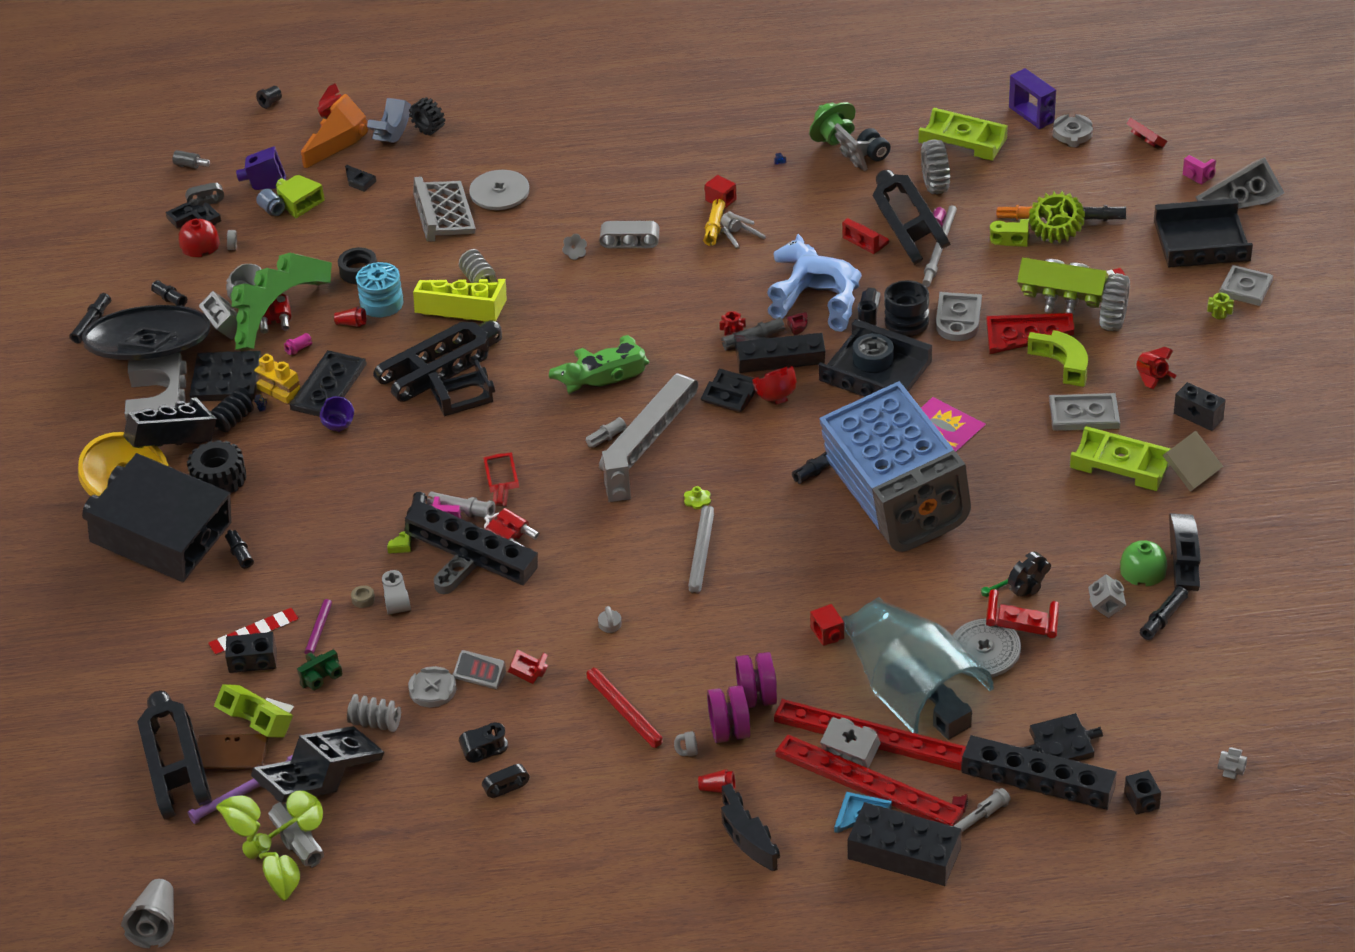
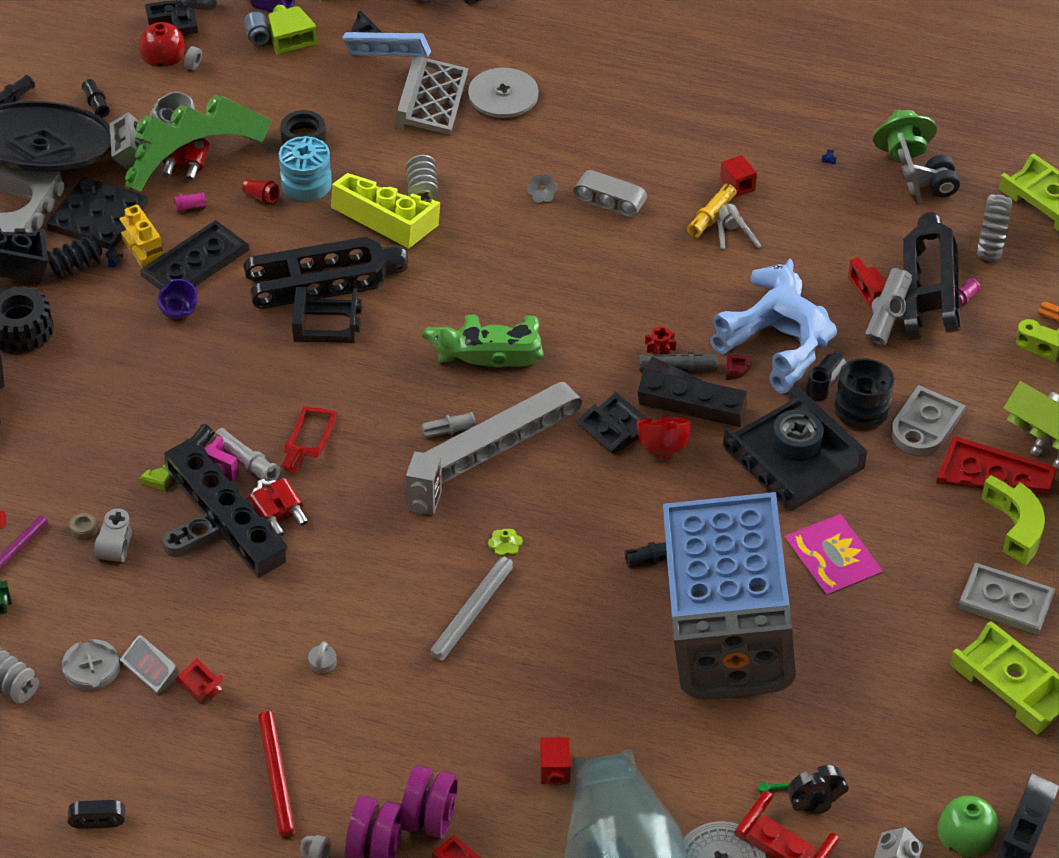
camera: 20 degrees right, 5 degrees up
(389, 180) = (387, 44): none -> light blue tile
(481, 743) = (96, 757): black piece -> none
(889, 244) = (888, 306): none -> light grey piece
(931, 268) = (926, 351): light grey bar -> none

